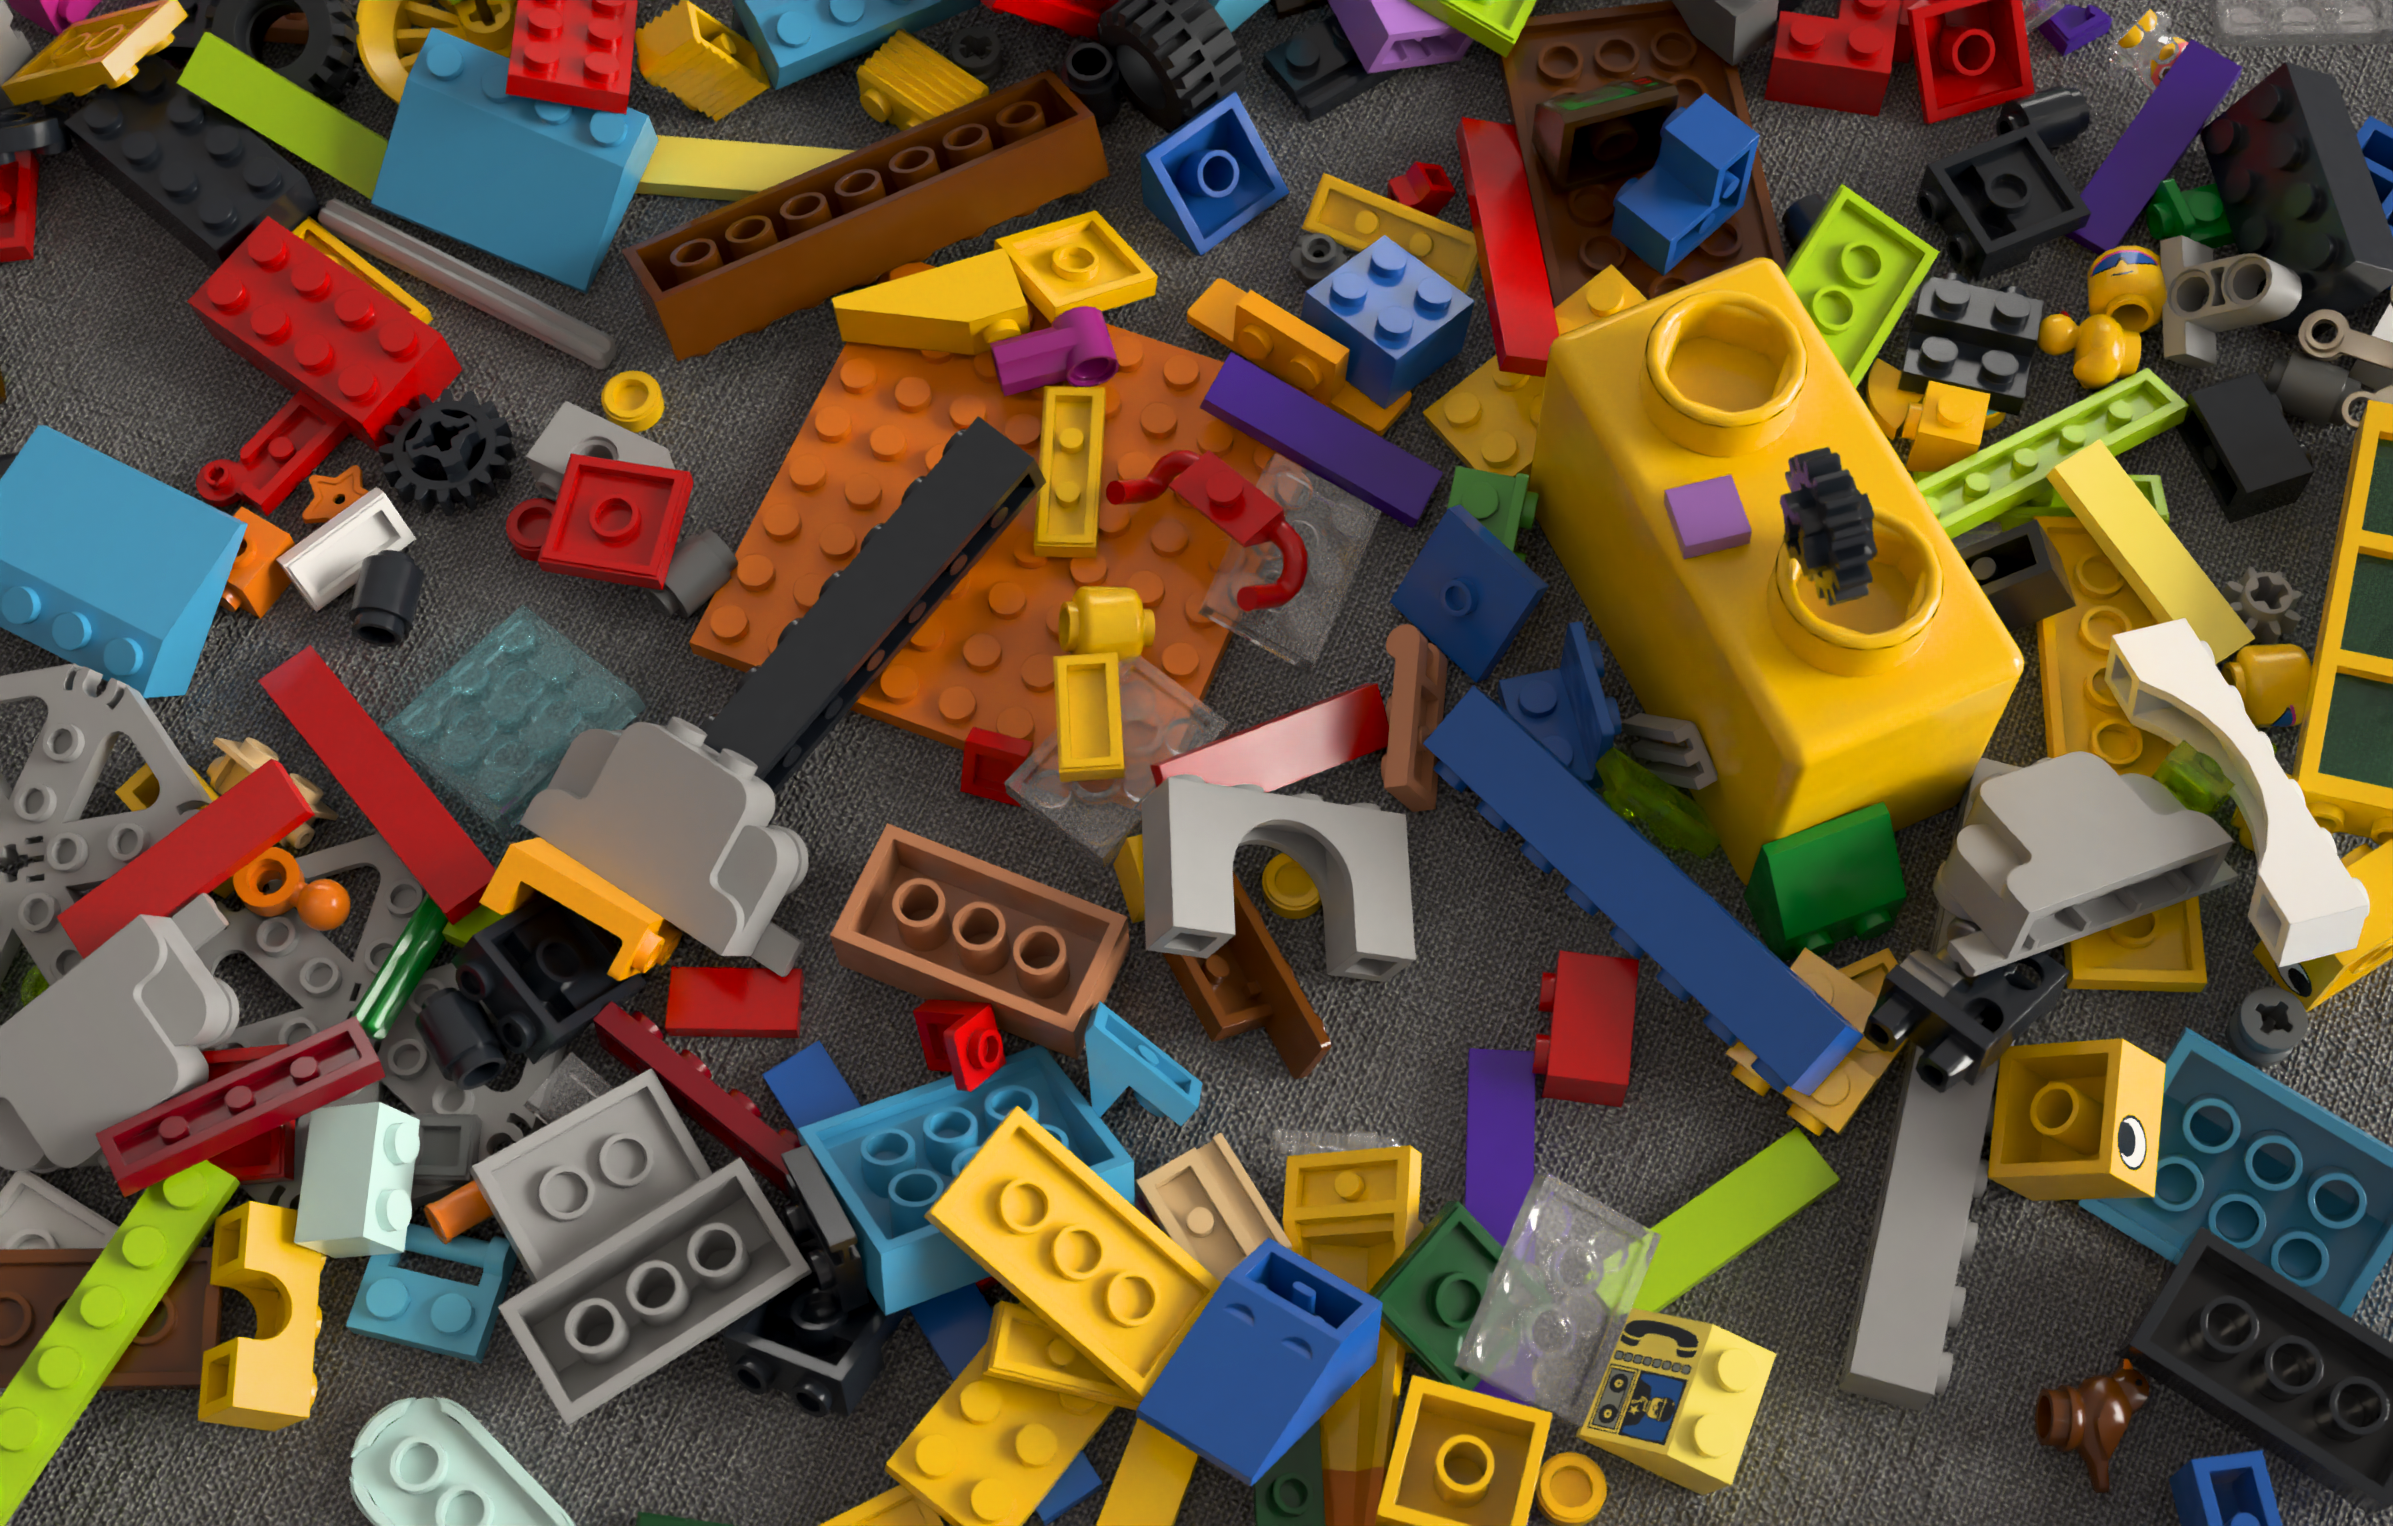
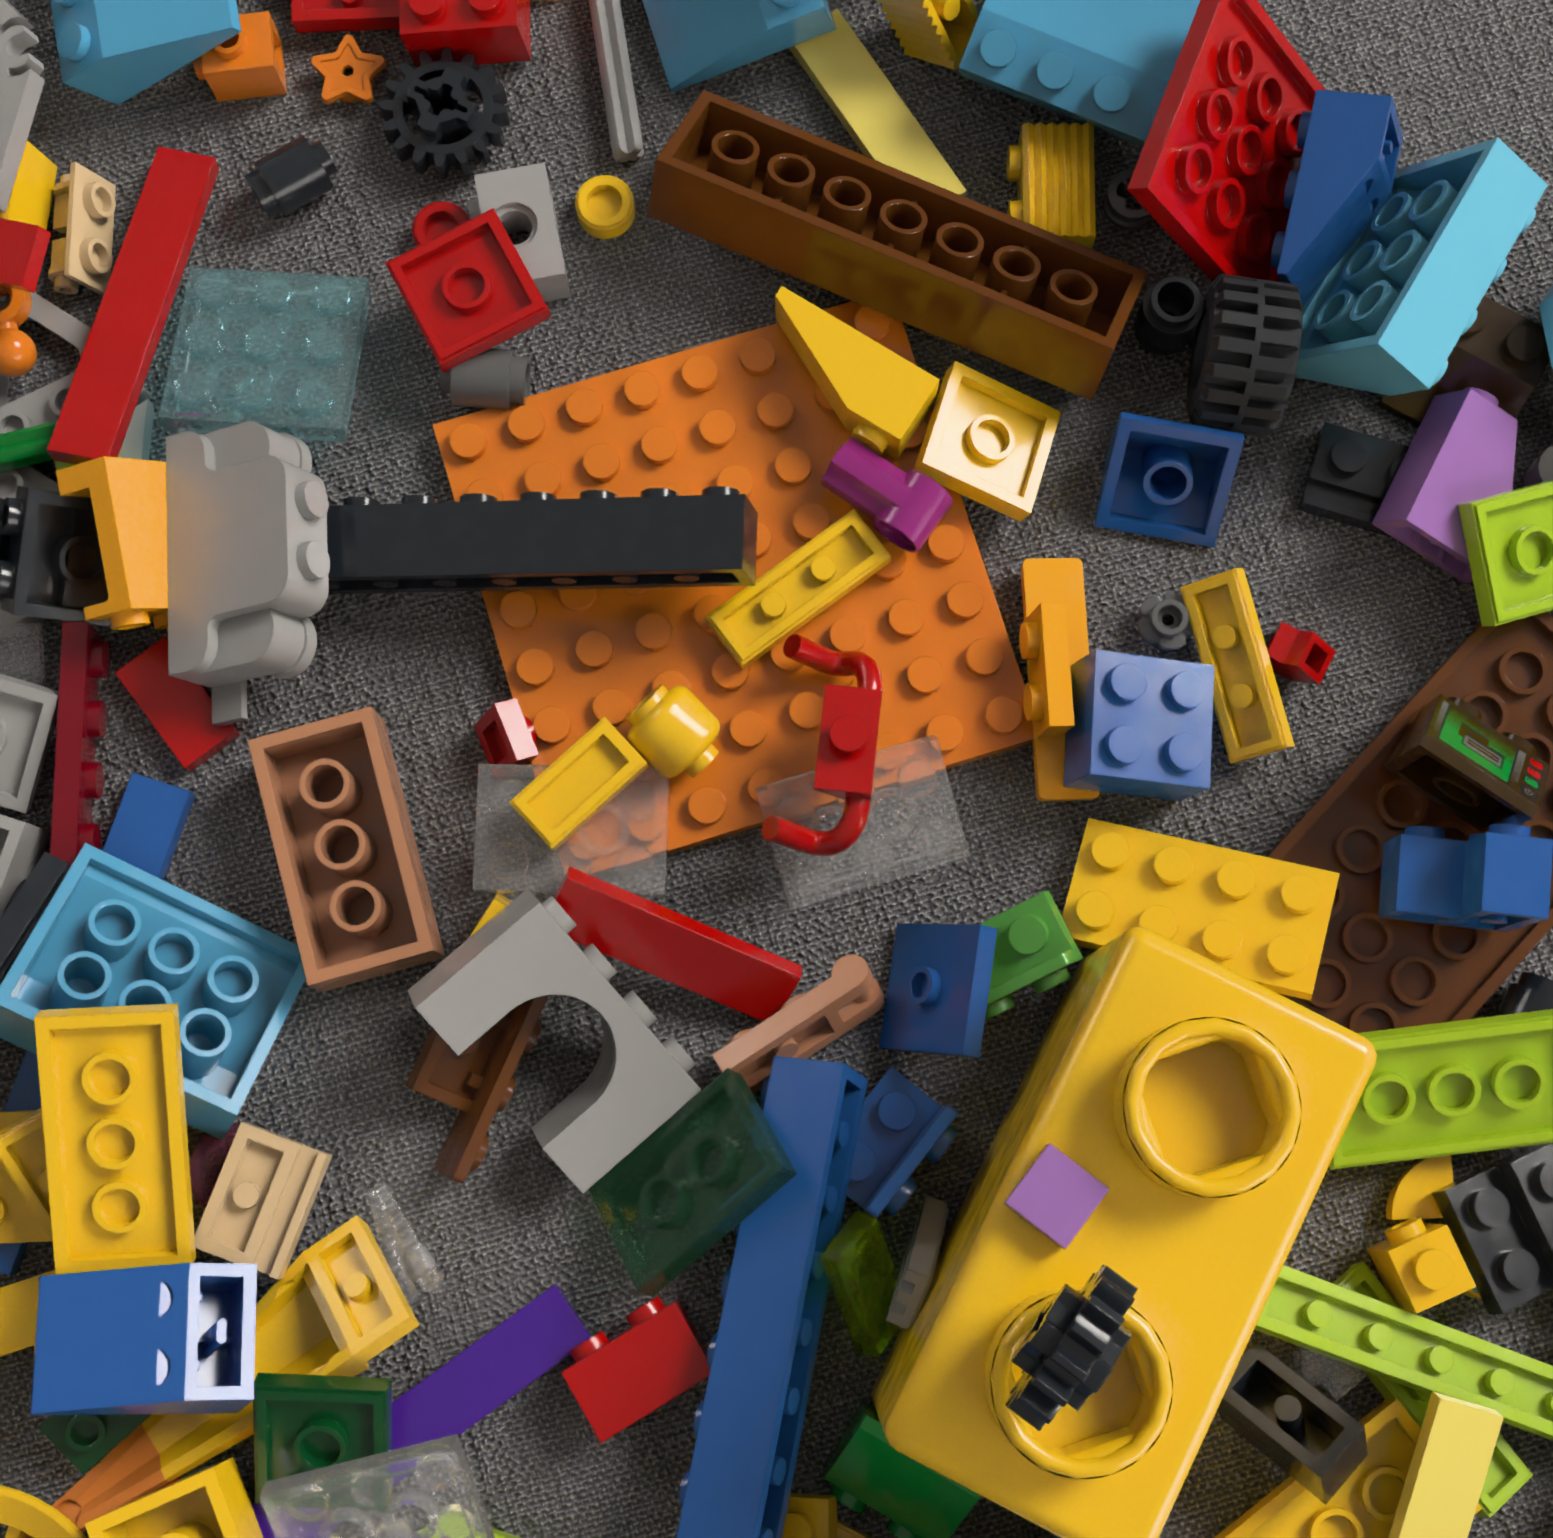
camera: 50 degrees right, 15 degrees up
(333, 554) = (323, 112): white tile -> none
(960, 1040) = (255, 906): red bracket -> none
(1124, 1058) = (334, 1042): dark azure slope -> none
(1289, 888) = (583, 1039): yellow tile -> none
(1321, 440) = (987, 761): dark purple tile -> none
(1474, 867) = (691, 1182): none -> clear green plate
(1507, 246) = (1287, 775): red tile -> none

